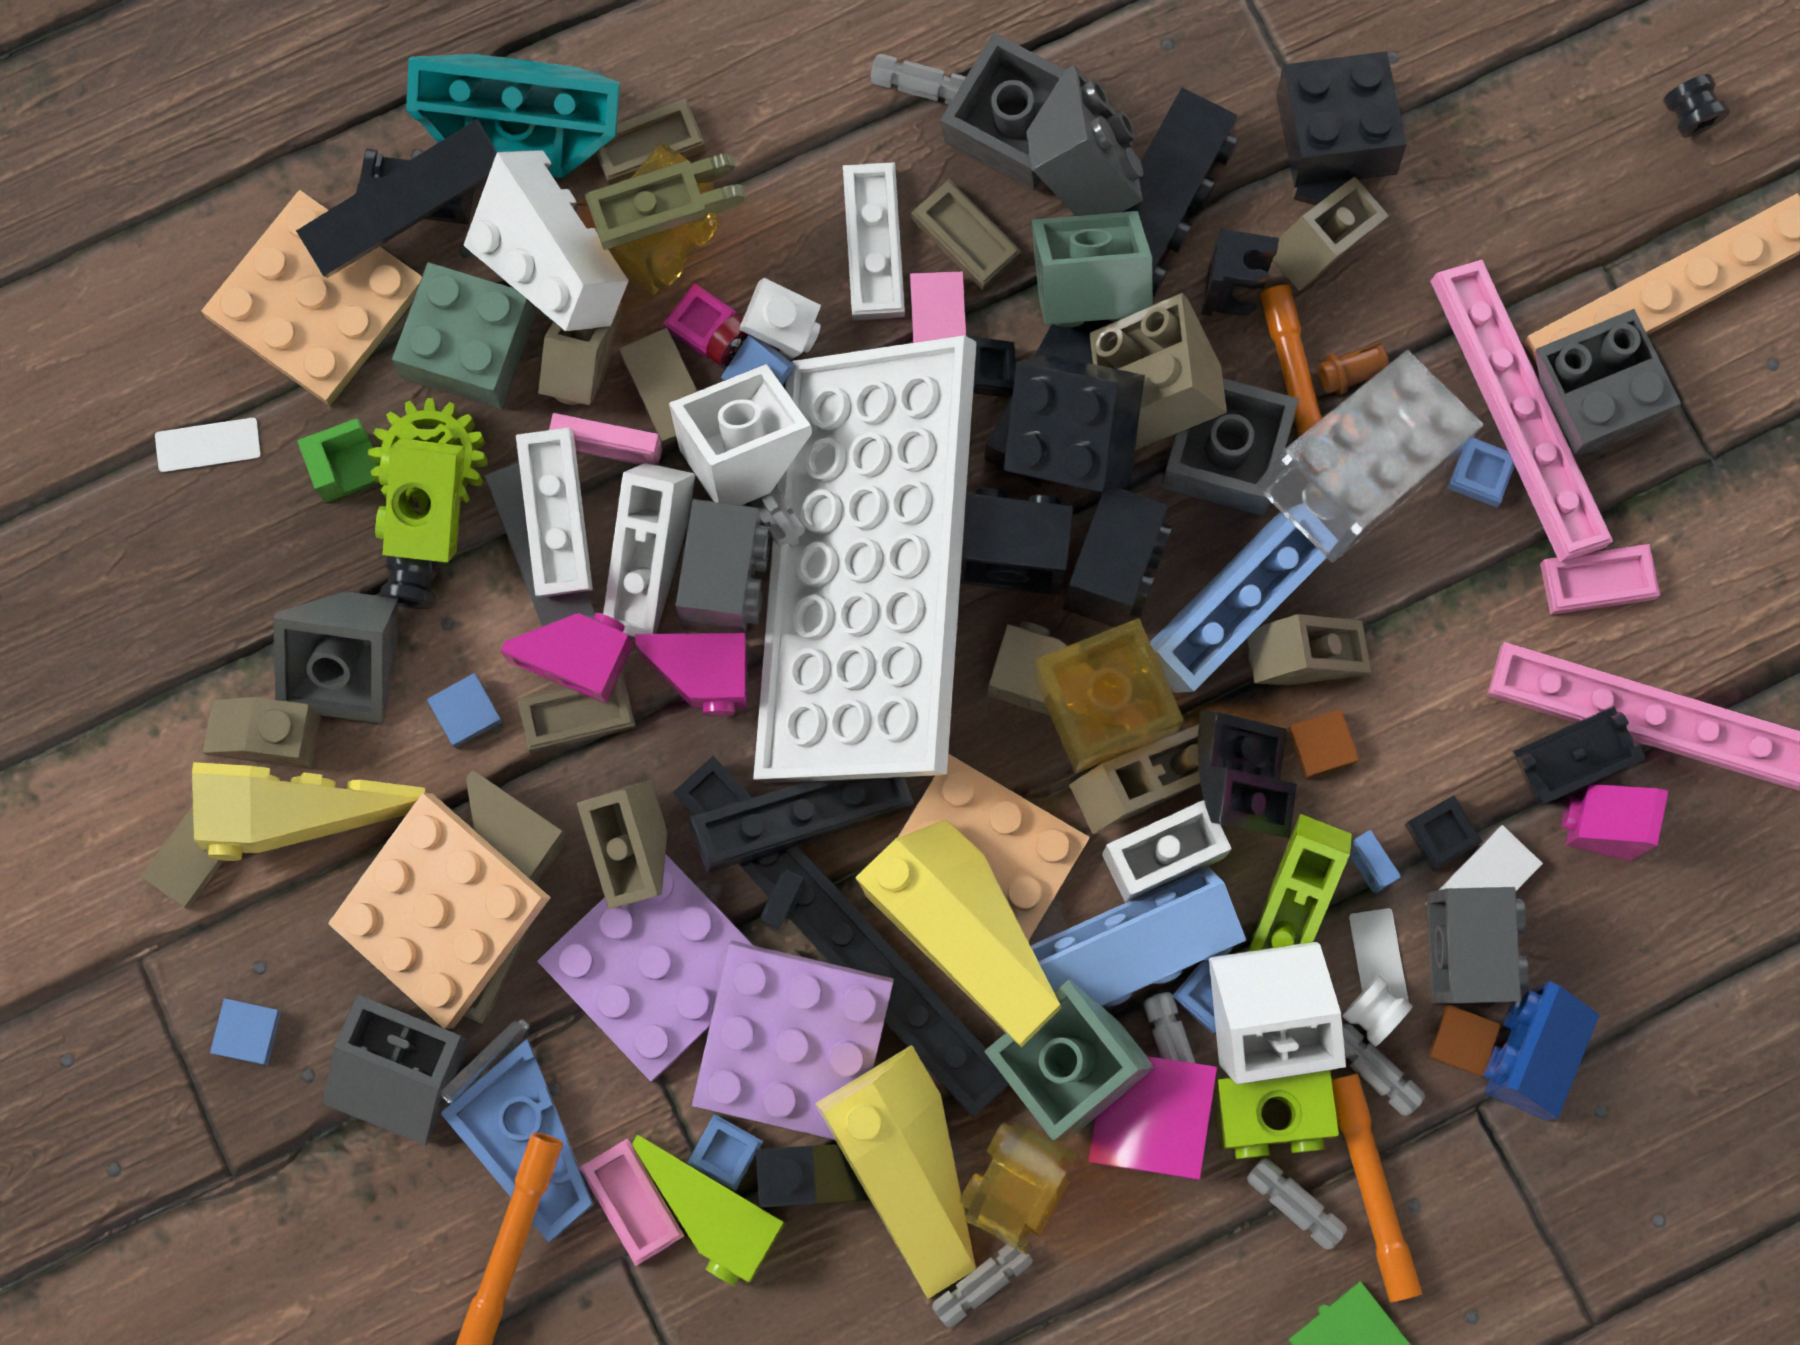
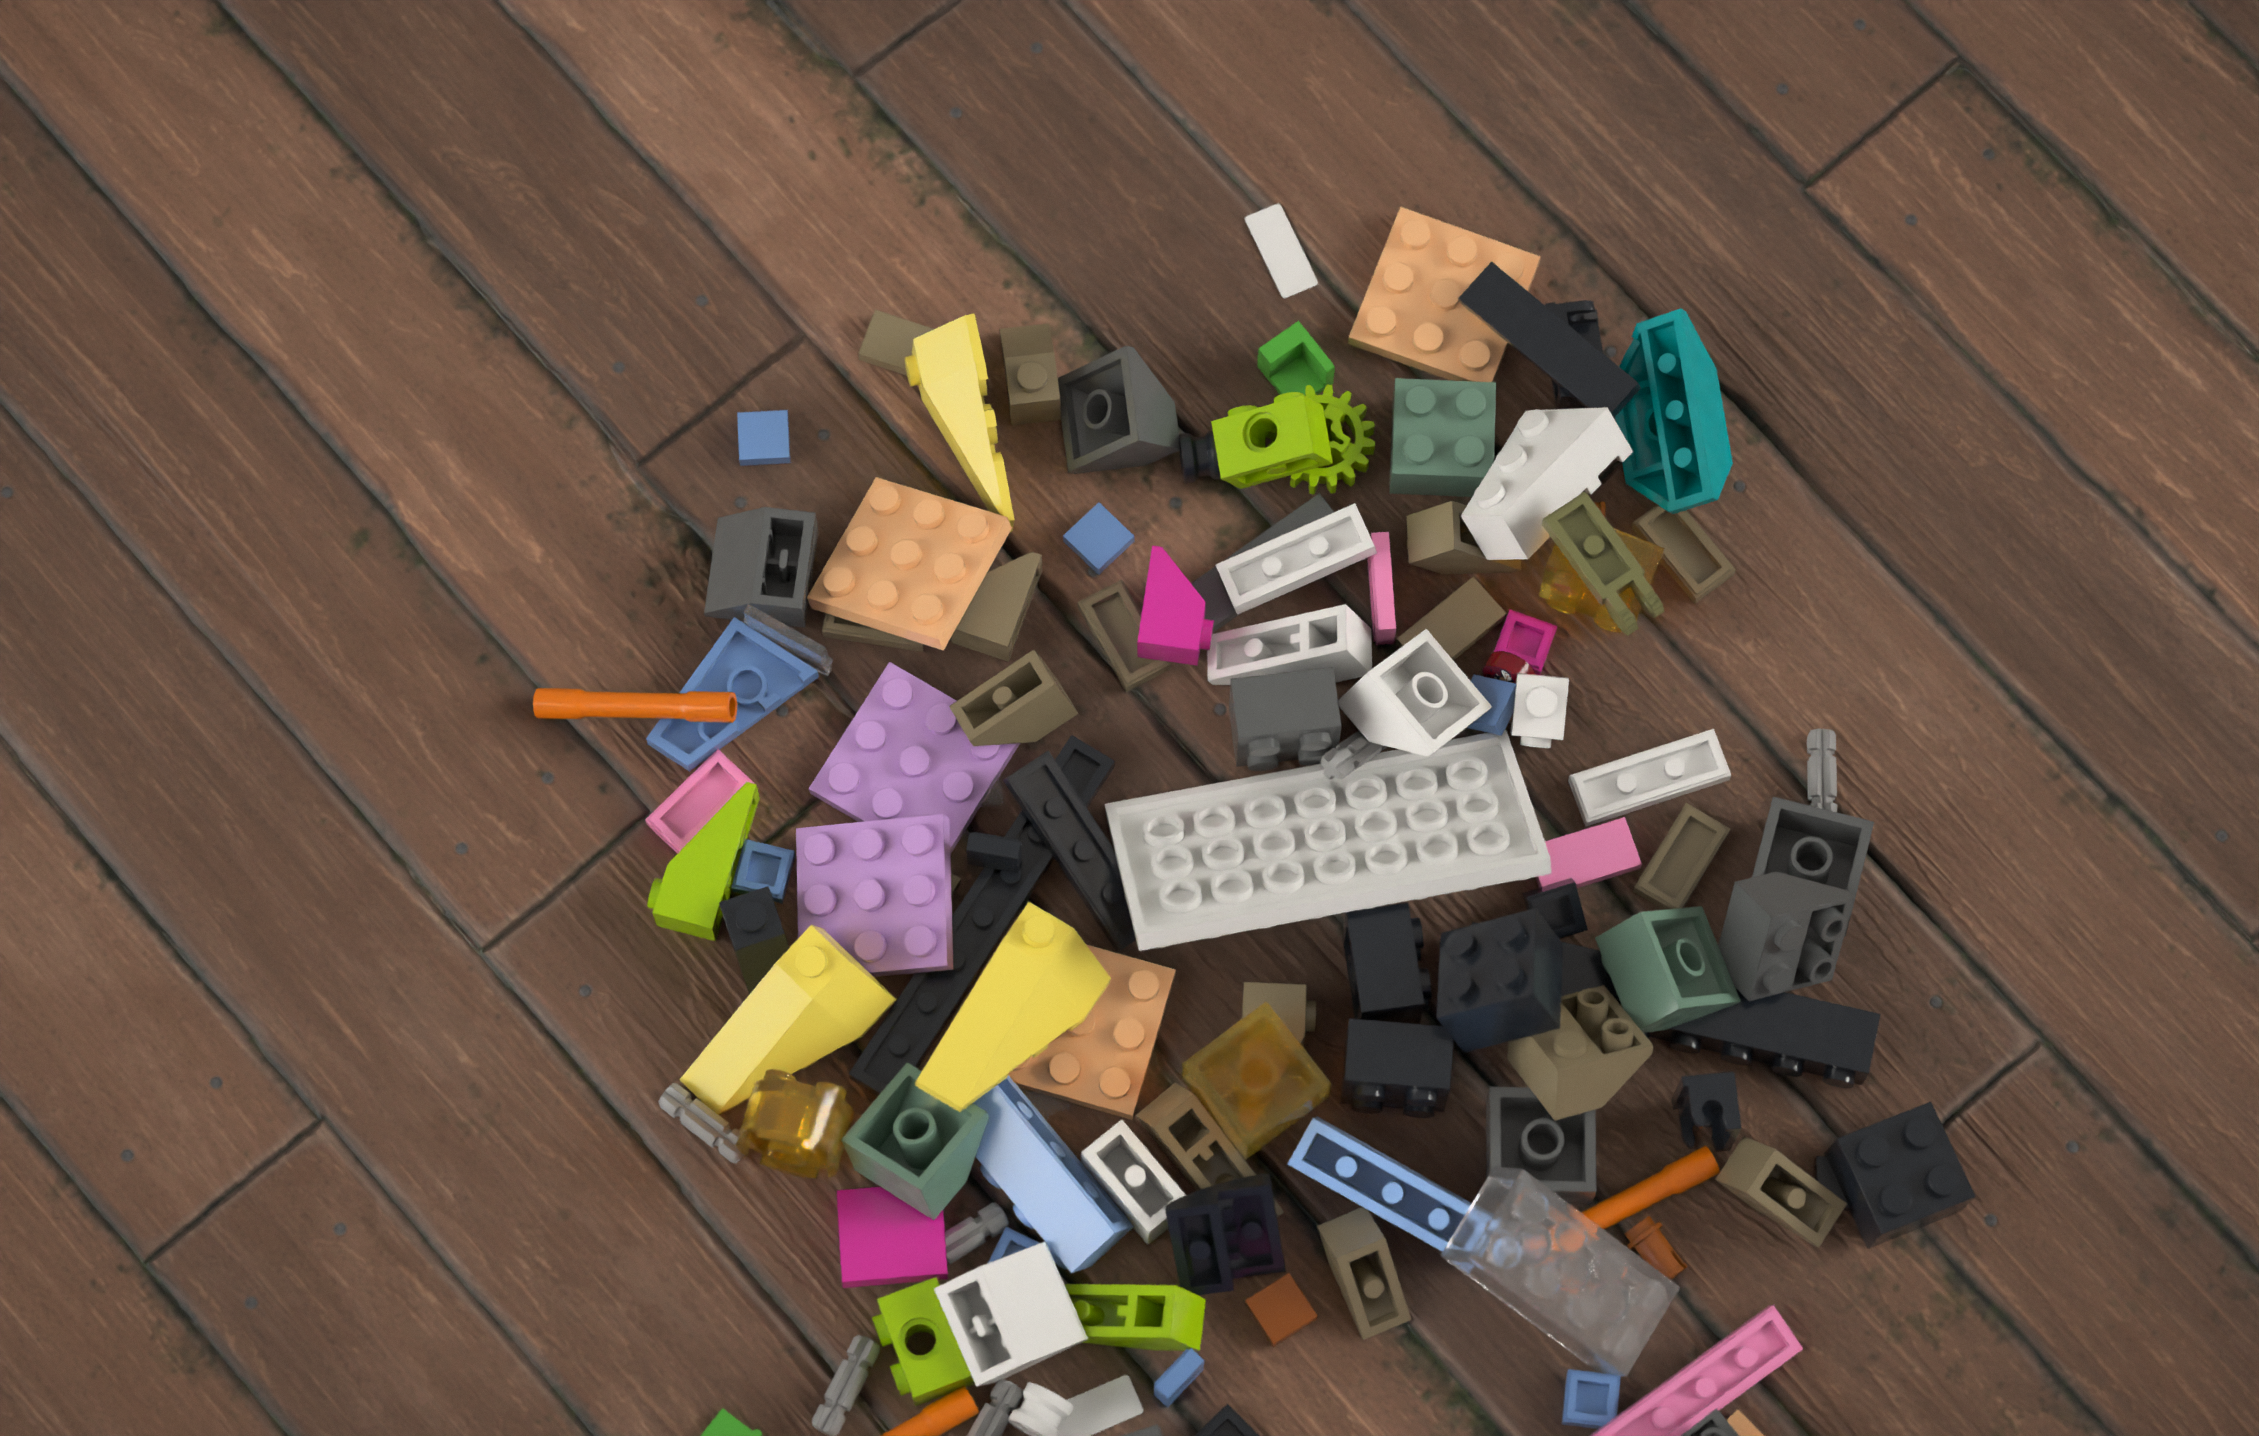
camera: 75 degrees right, 5 degrees down
(701, 668) = (1192, 731): dark pink slope -> none

